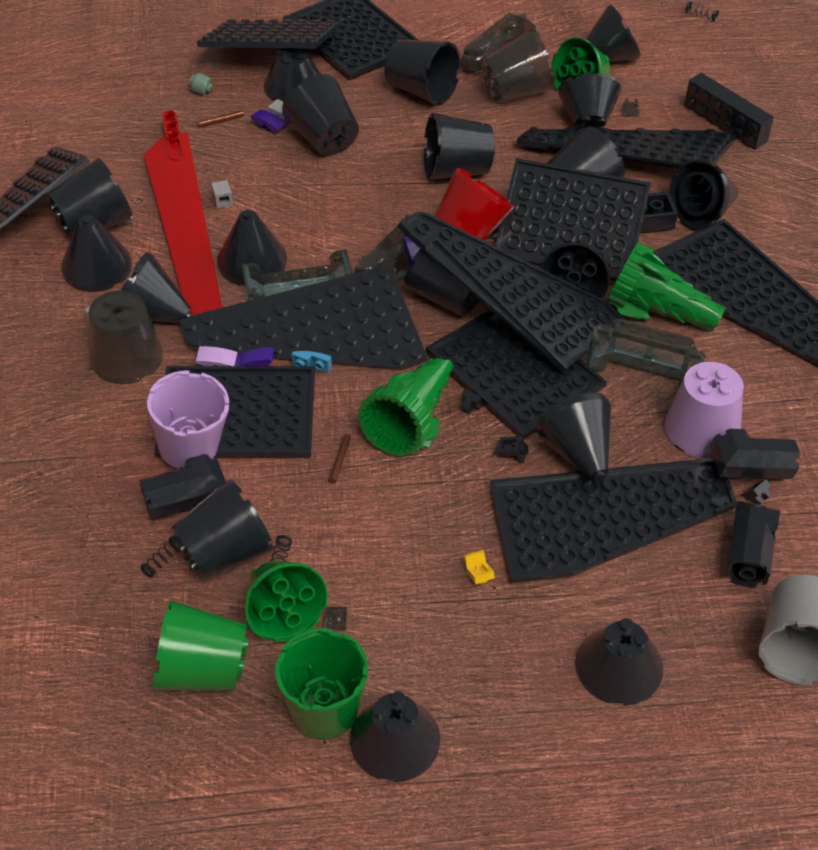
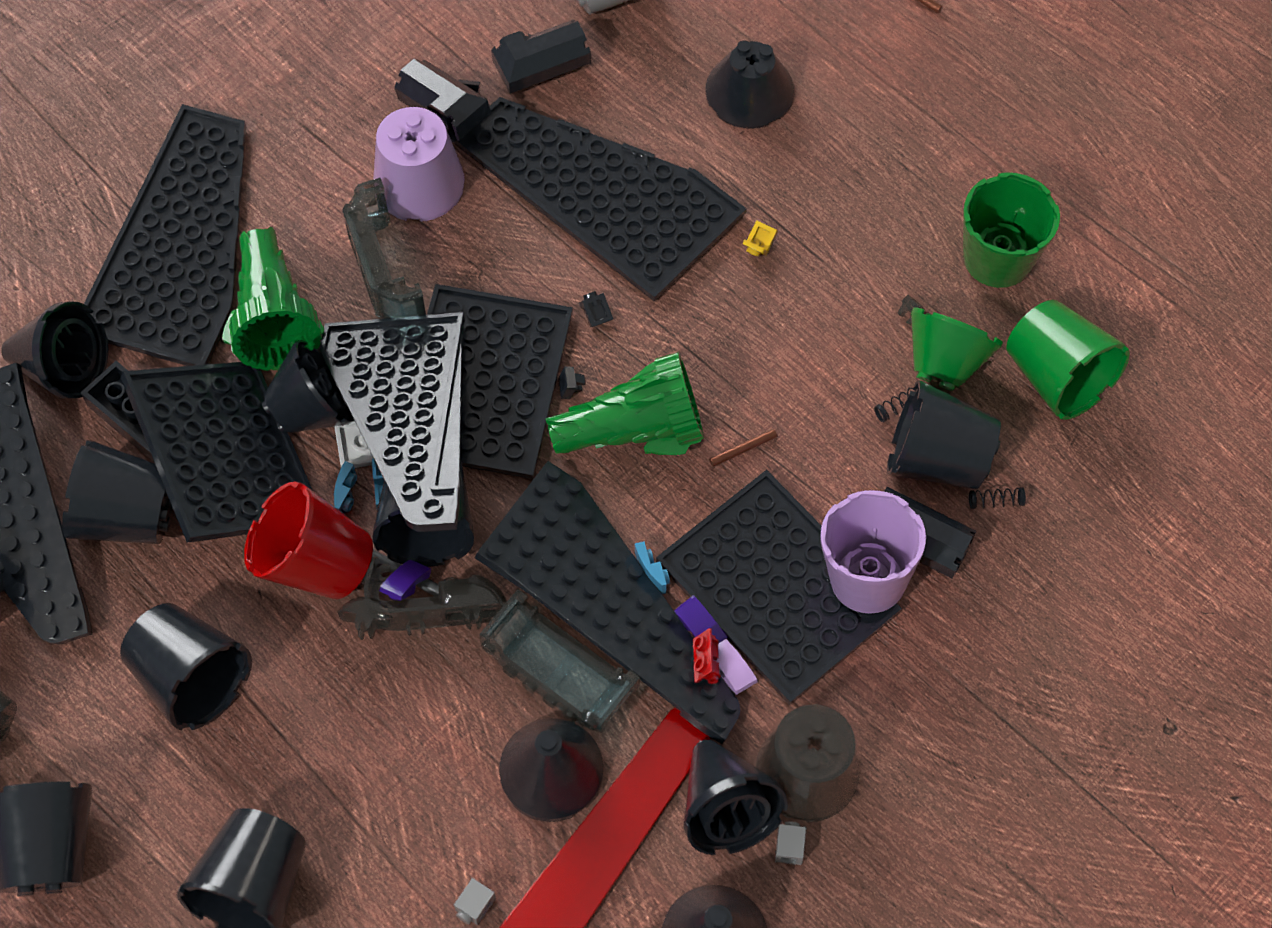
camera: 130 degrees left, 15 degrees up
(225, 336) = (705, 652): none -> red hinge
(395, 738) = (954, 178): black cone -> none
(580, 433) = (543, 242): black cone -> none

